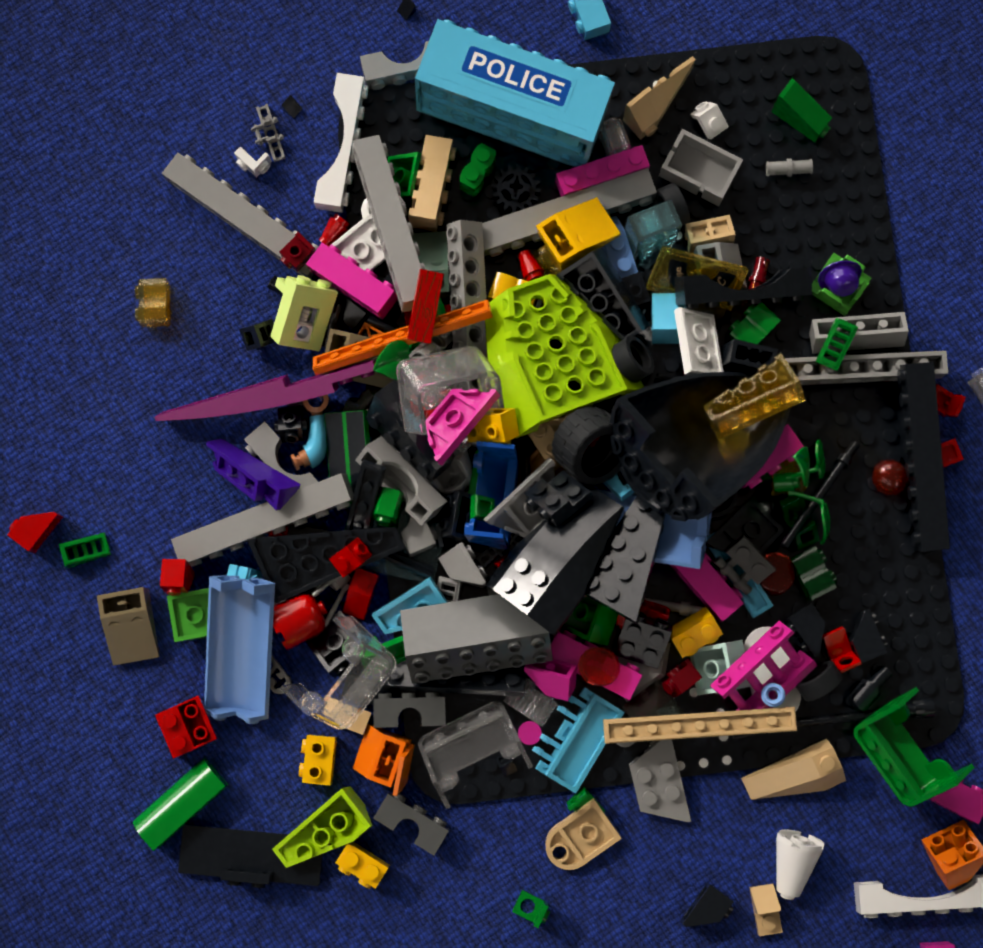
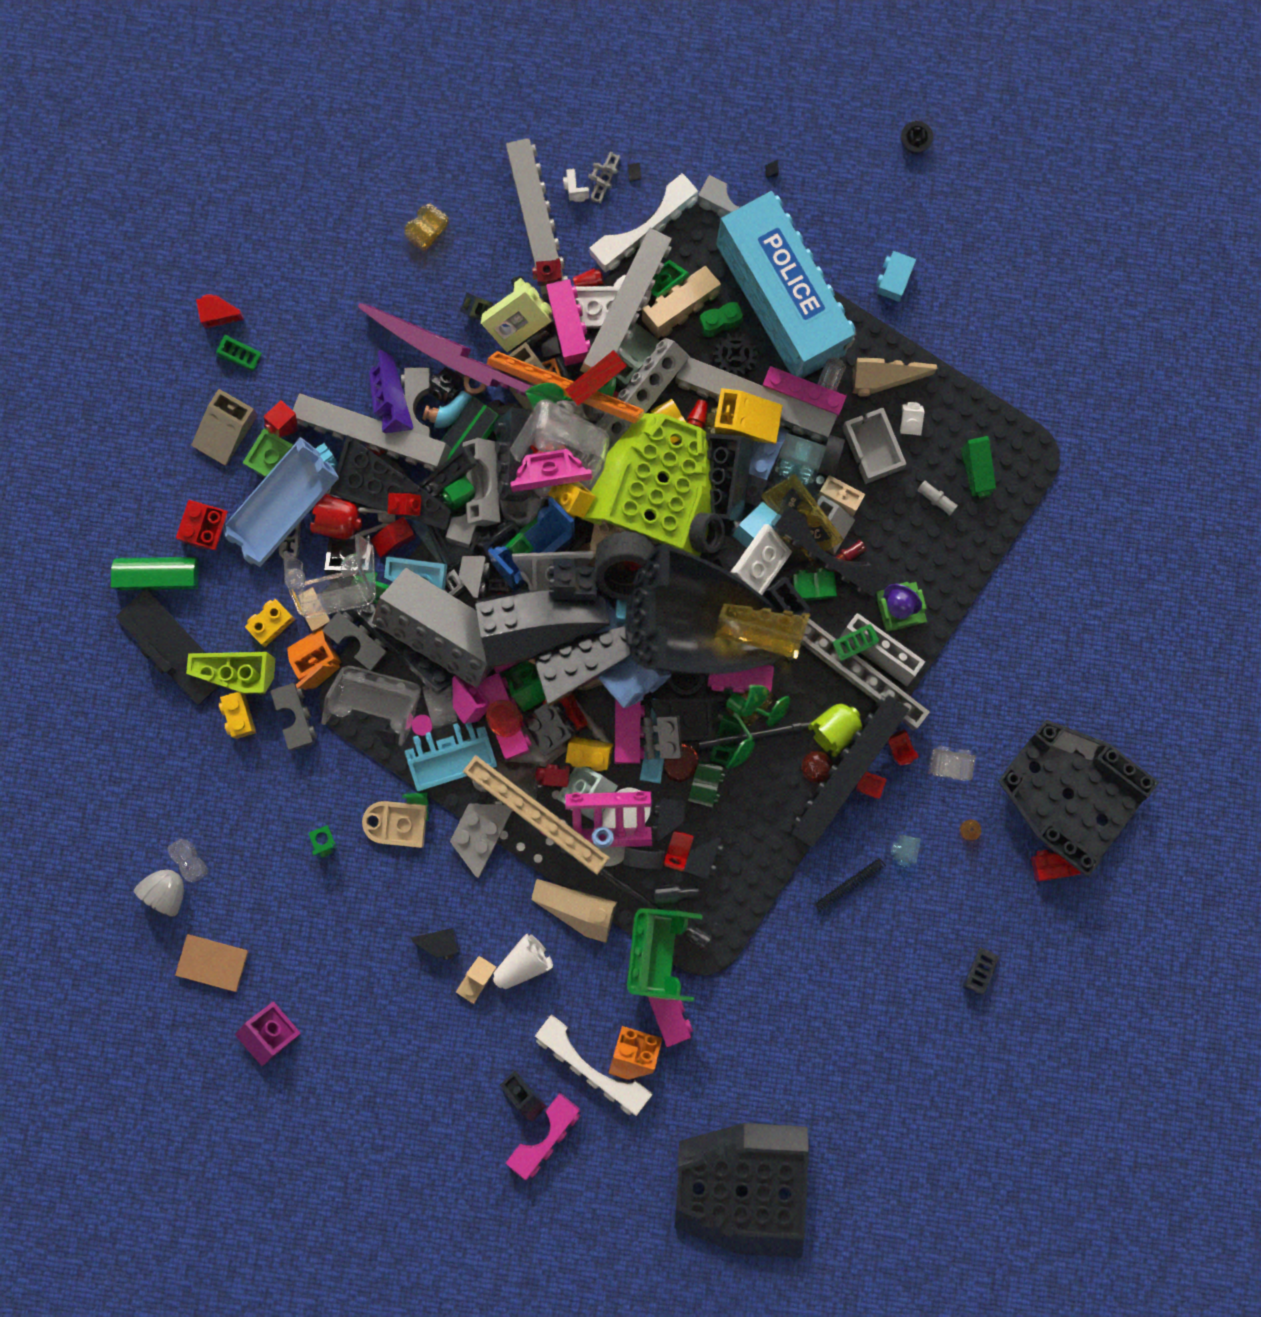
camera: 40 degrees right, 0 degrees up
(880, 431) = (836, 728): none -> lime cylinder

